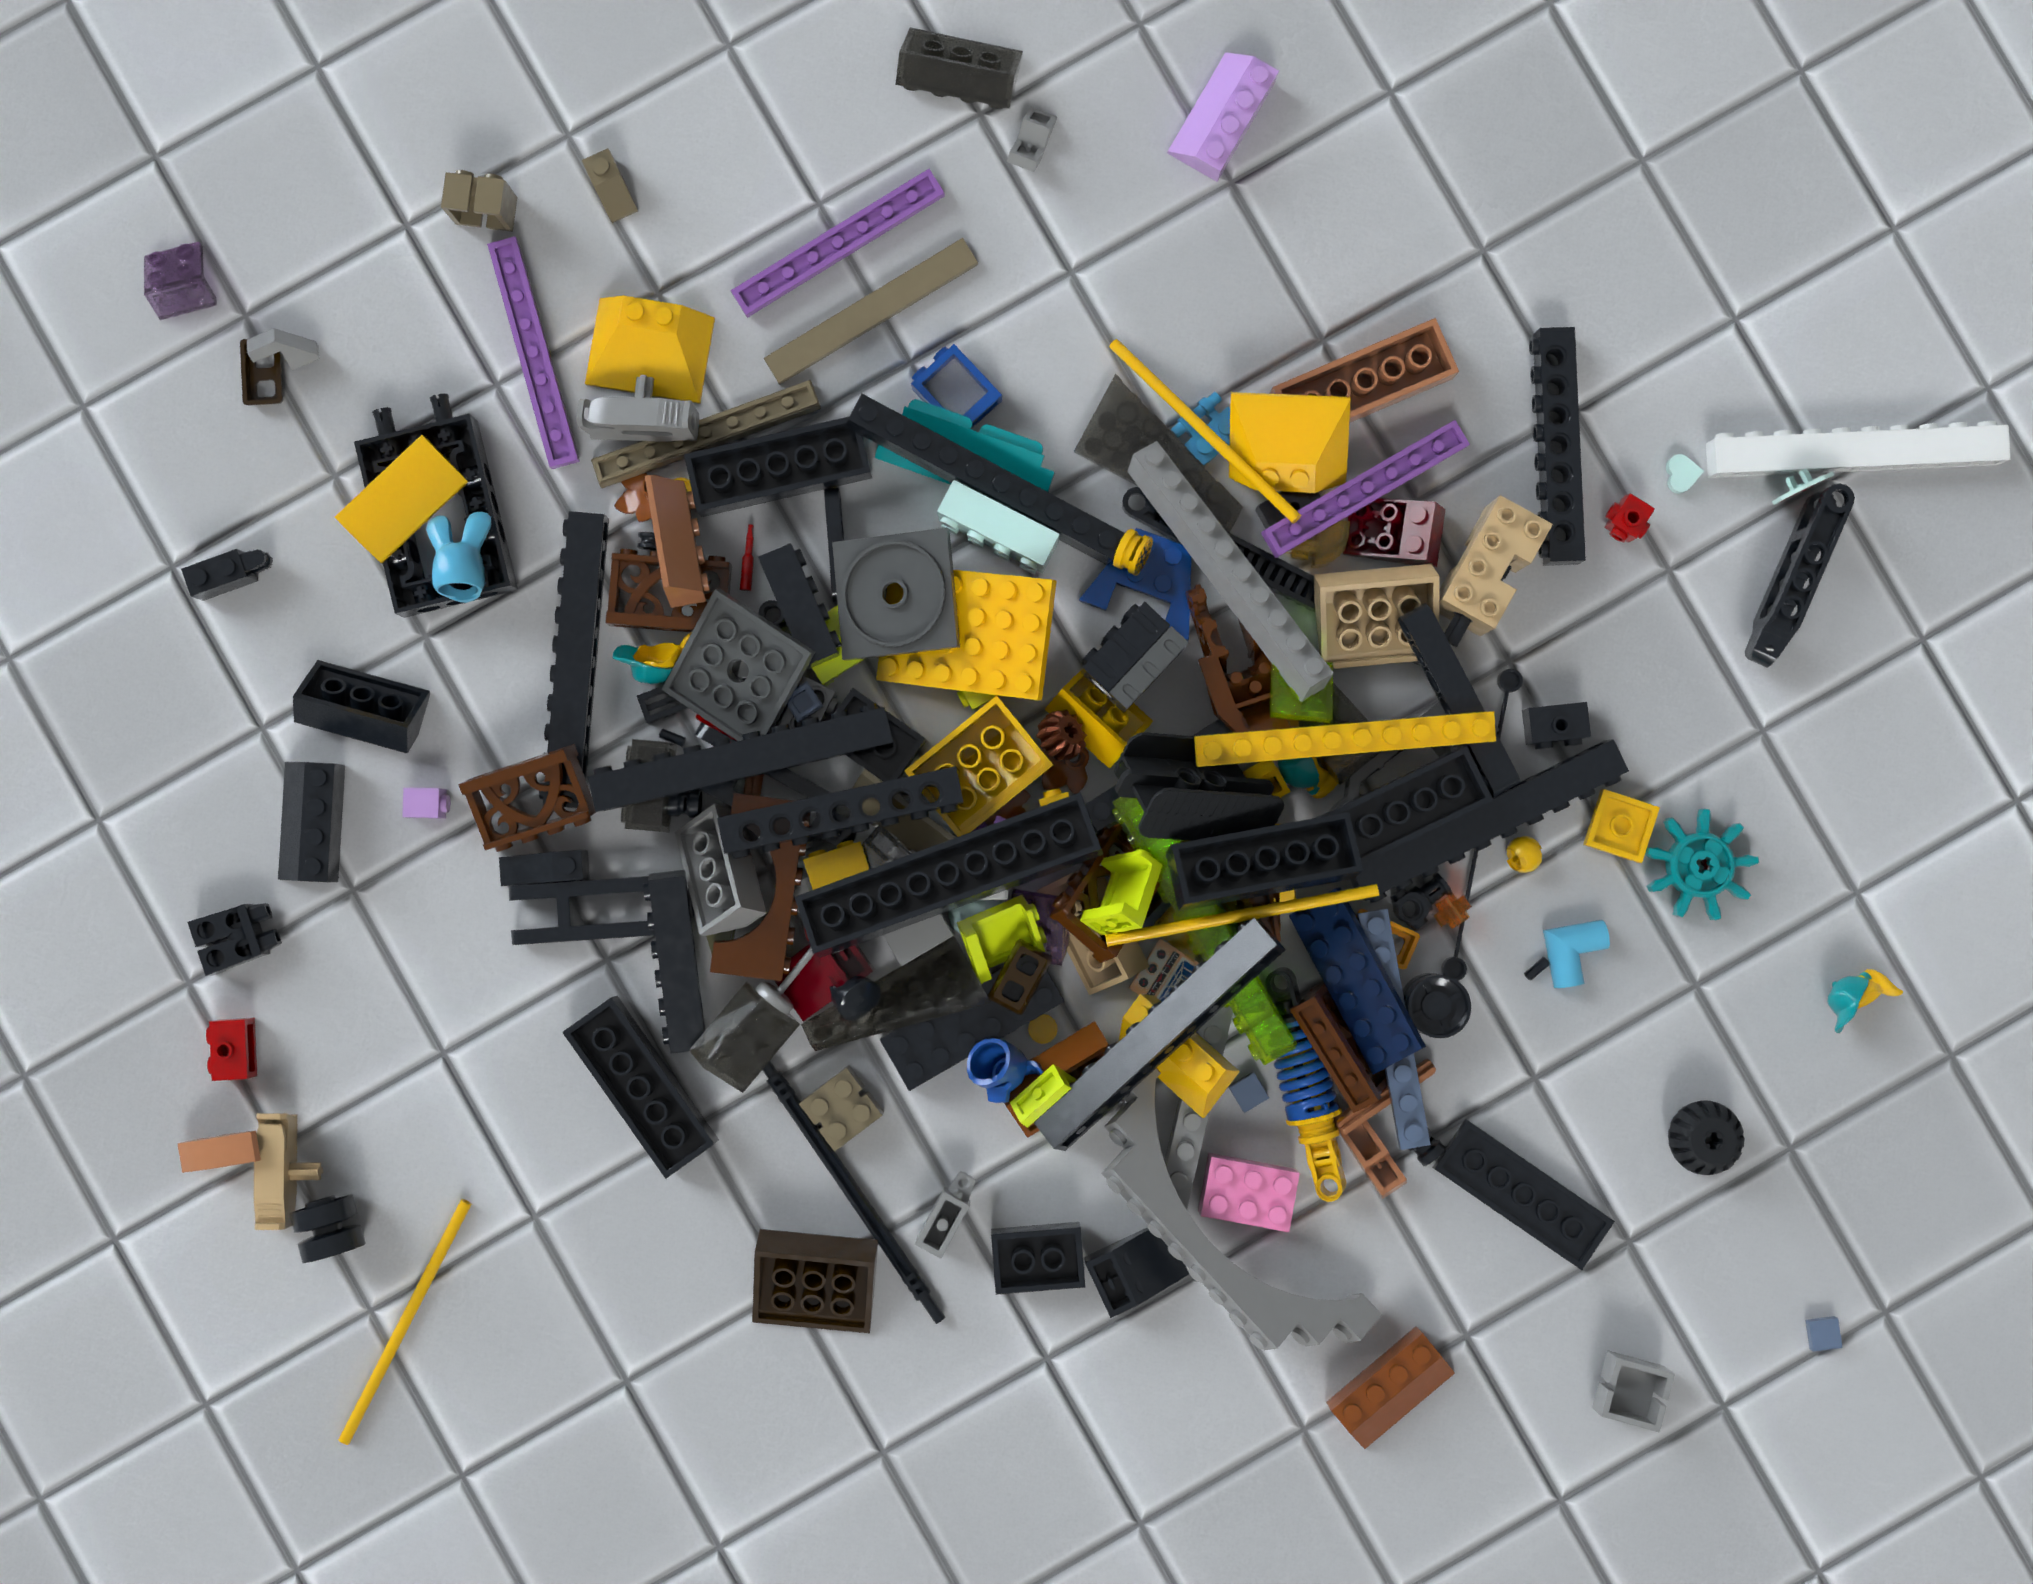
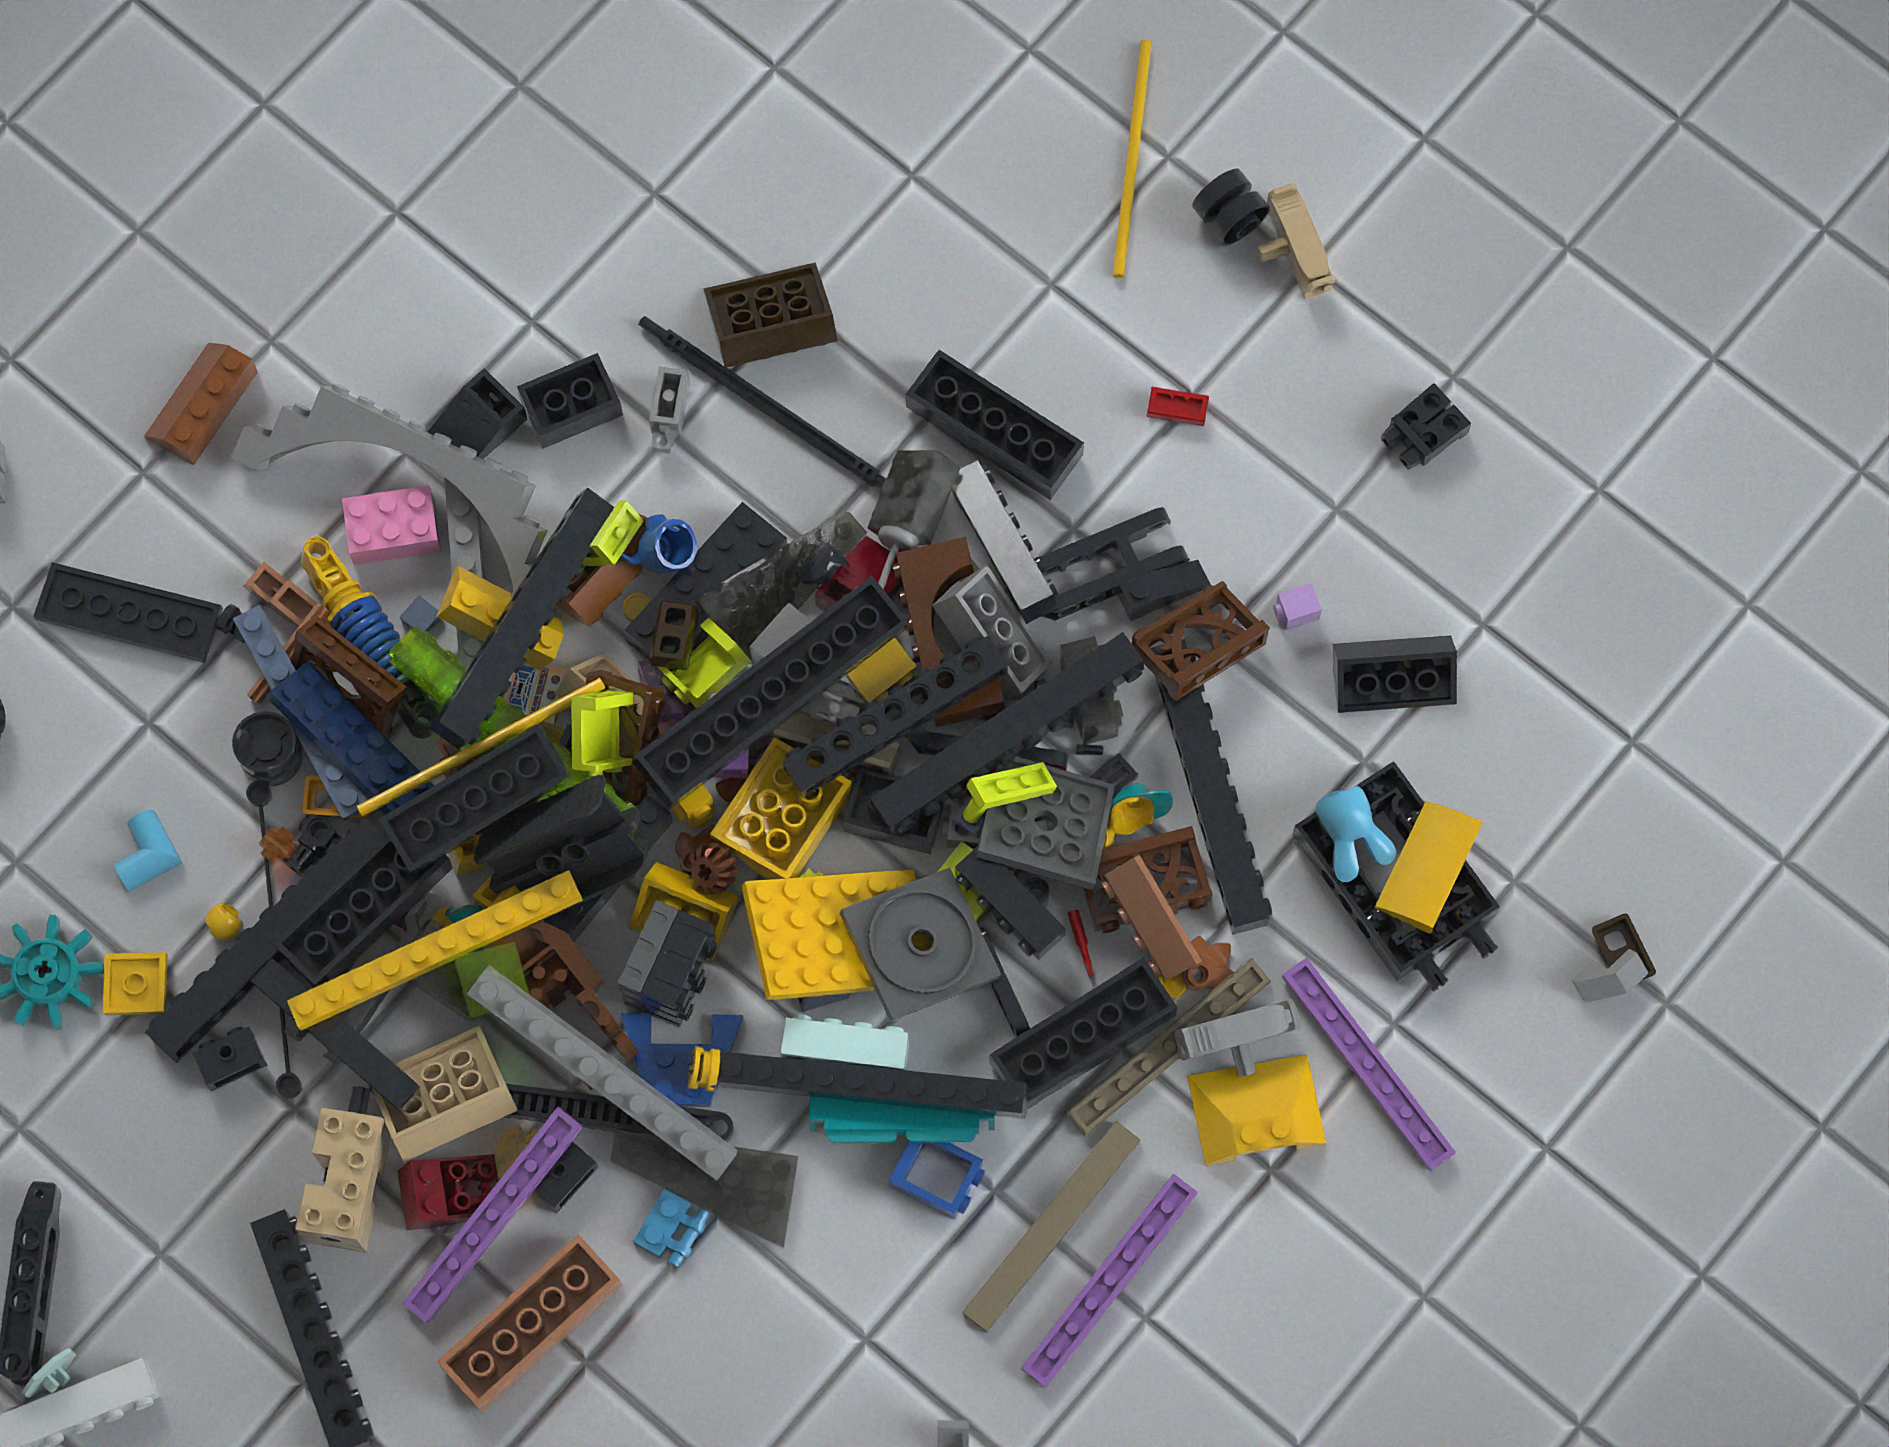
camera: 165 degrees right, 15 degrees down
(176, 281) = (1744, 1011): clear purple bracket -> none
(219, 1151) = (1356, 238): nougat slope -> none
(225, 572) = (1575, 749): black hinge -> none
(232, 1049) = (1385, 331): red brick -> none
(311, 822) = (1398, 553): black slope -> none
(460, 1045) = (1177, 406): none -> red plate
(469, 198) = (1470, 1189): dark tan piece -> none
(610, 185) = (1358, 1255): dark tan slope -> none
(647, 541) = (1185, 920): black bush -> none
(761, 707) = (1007, 788): none -> neon yellow piece
(841, 1108) = (802, 467): dark tan piece -> none
(1205, 431) = (674, 1214): yellow piece -> none
(1291, 439) = (584, 1228): yellow slope -> none
(1537, 968) = (177, 823): black piece -> none
(1628, 519) = (222, 1292): red brick -> none
(1682, 473) = (175, 1354): light aqua tile -> none

